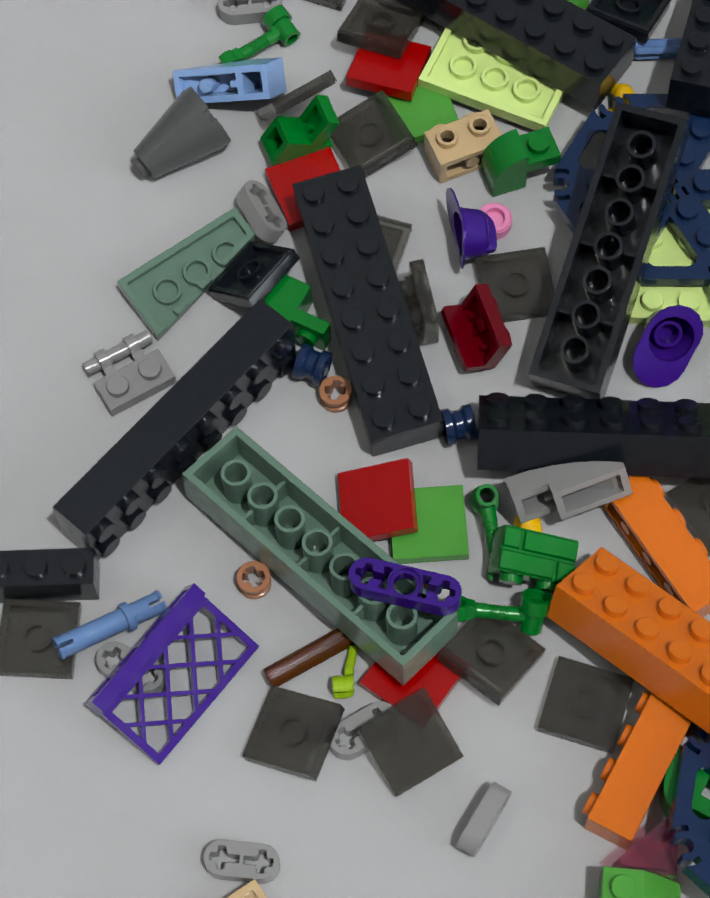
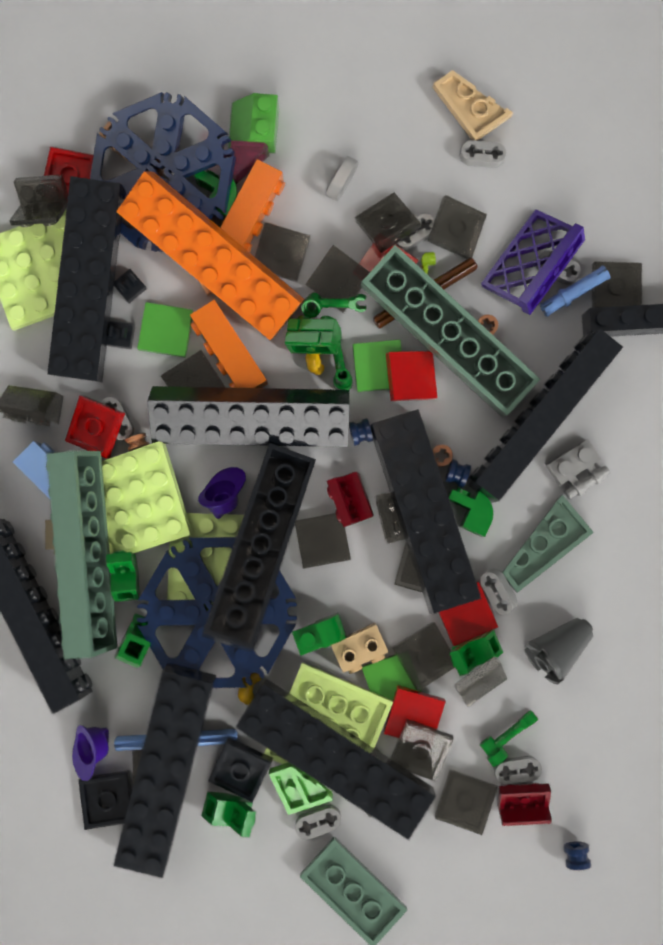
camera: 170 degrees right, 20 degrees up
(234, 80) = (522, 697): light blue slope -> none
(253, 274) = (501, 537): black tile -> none
(435, 582) = (379, 283): dark purple beam -> none
(471, 229) = (351, 575): dark purple piece -> none
(501, 217) = (337, 590): bright pink tile -> none
(567, 488) = (293, 376): light grey slope -> none

